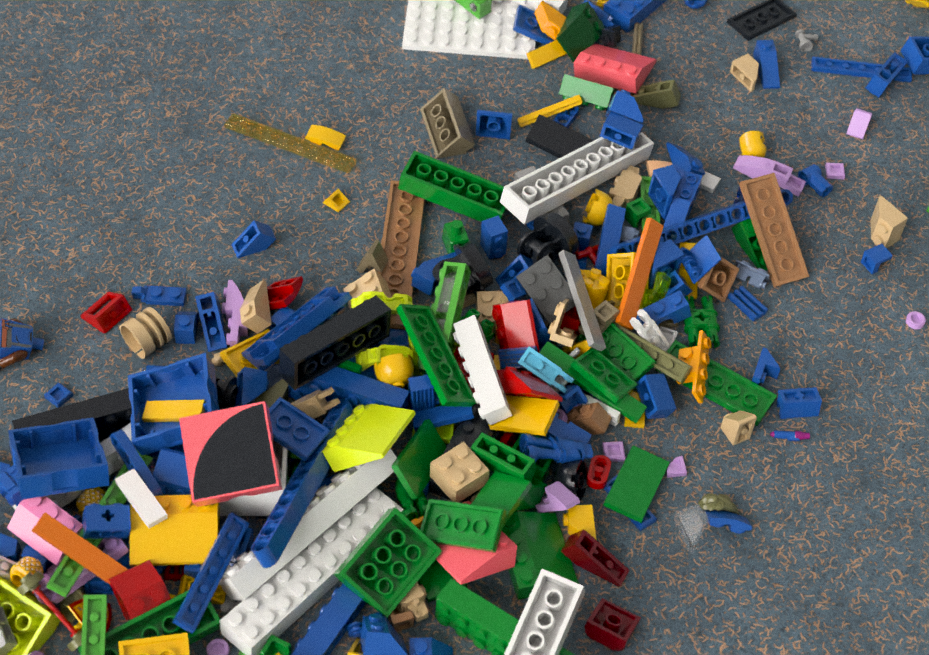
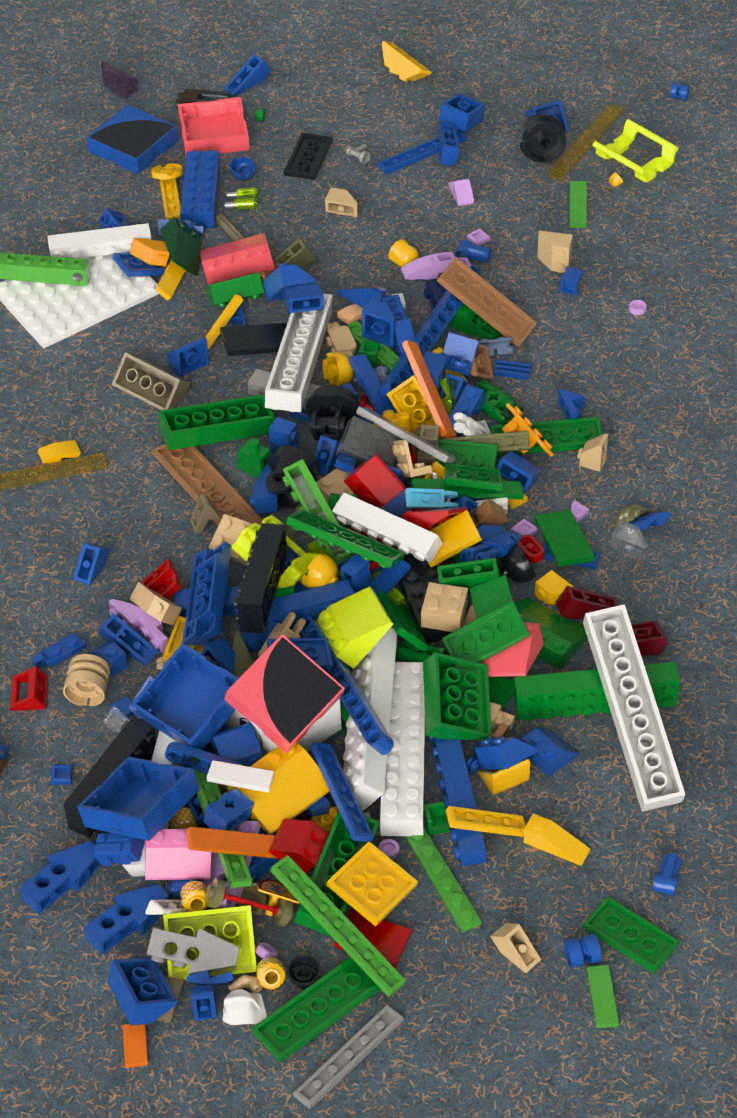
camera: 35 degrees left, 5 degrees down
(171, 410) = (194, 704): yellow tile -> none
(336, 201) = (121, 493): yellow slope -> none
(557, 498) = (526, 581): lavender slope -> none
(611, 36) = (209, 236): black bracket -> none
(673, 23) = (245, 198): none -> clear neon green piece
(766, 56) = (344, 179): blue slope -> none
(790, 435) = (635, 437): blue piece -> none
(799, 402) = (617, 412): blue hinge -> none

